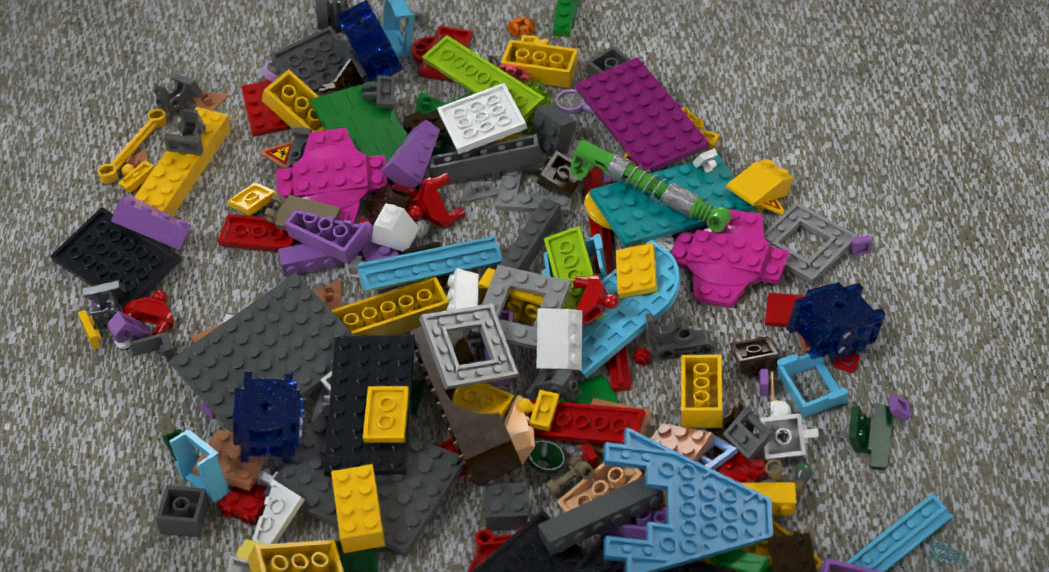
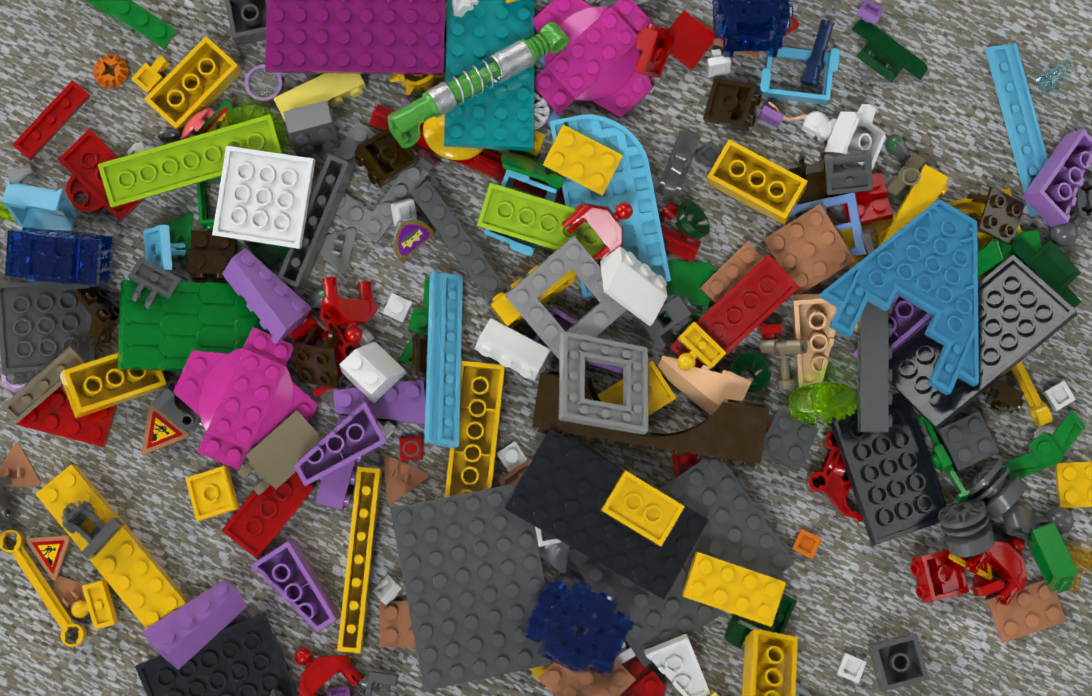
camera: 70 degrees left, 35 degrees up
(157, 137) = (50, 552): none -> piece
(212, 269) = (298, 584): none -> medium lavender wedge
(238, 295) = (359, 560): none -> yellow brick
(264, 76) = (41, 385): none -> dark tan plate
(353, 291) = (411, 449): none -> red tile
(410, 95) = (159, 249): none -> medium azure tile
(428, 560) = (806, 544): none -> orange plate
(455, 236) = (397, 308): none -> white plate
(465, 13) = (51, 120): none -> red plate
(510, 215) = (410, 236): none -> shield
(527, 205) = (403, 210): none -> white plate
(548, 500) = (823, 401): none -> clear neon green wheel
(577, 204) = (427, 160): none -> dark grey tile
(590, 129) = (326, 87): none -> light yellow brick
(609, 246) = (530, 165): none -> green piece
(648, 368) = (692, 220): none -> dark green piece
(755, 282) = (656, 46): none -> red plate
(779, 333) = (718, 64): none -> white tile
(851, 385) = (815, 62): none -> dark blue pin

